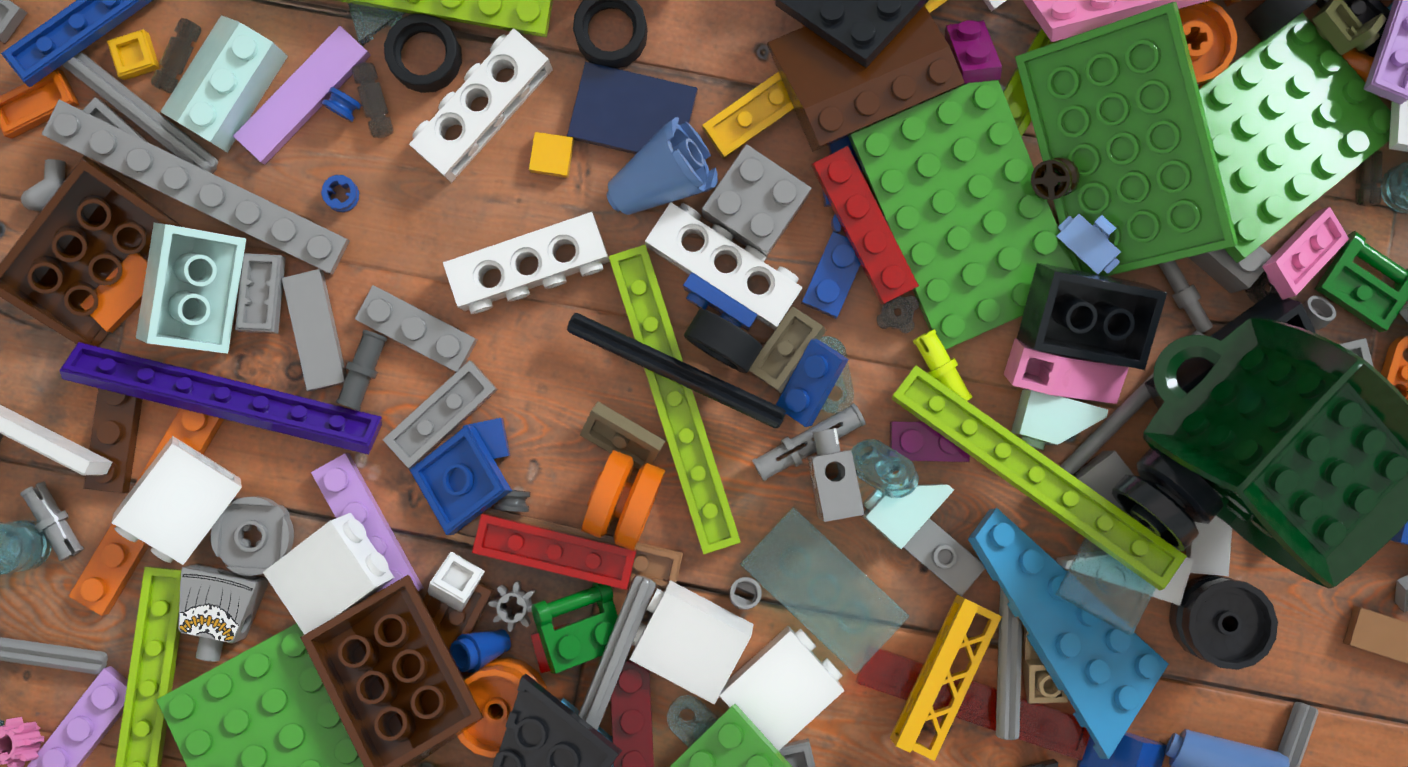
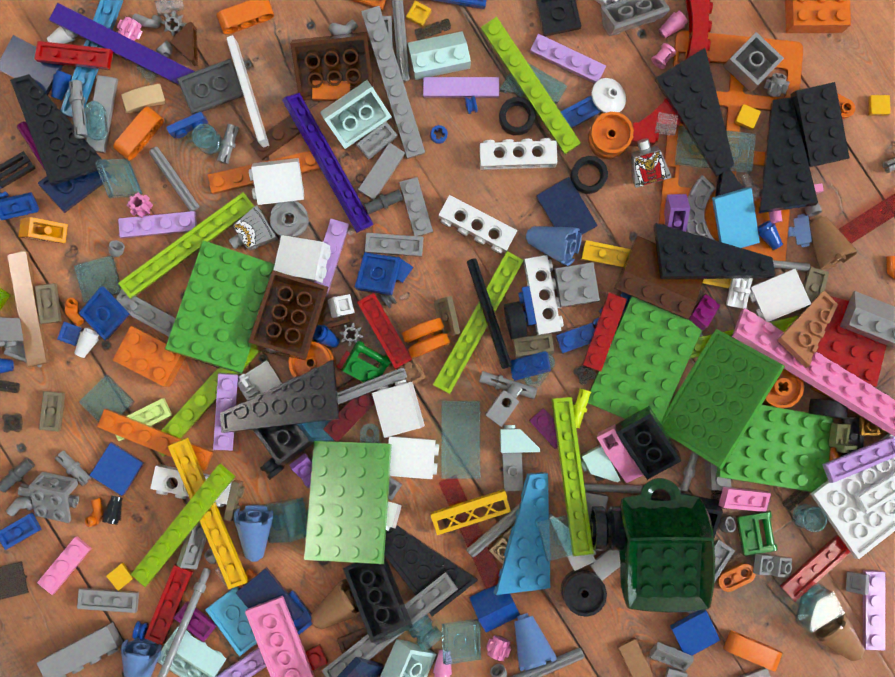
camera: 40 degrees right, 0 degrees up
(372, 100) = (483, 114): clear smoke axle -> none
(551, 154) = (524, 196): yellow tile -> none
(747, 586) = (436, 412): light grey hinge -> none
(876, 464) = (524, 420): clear light blue plate -> none
(1046, 180) = (681, 385): dark brown wheel -> none
(1090, 242) = (675, 418): light blue piece -> none

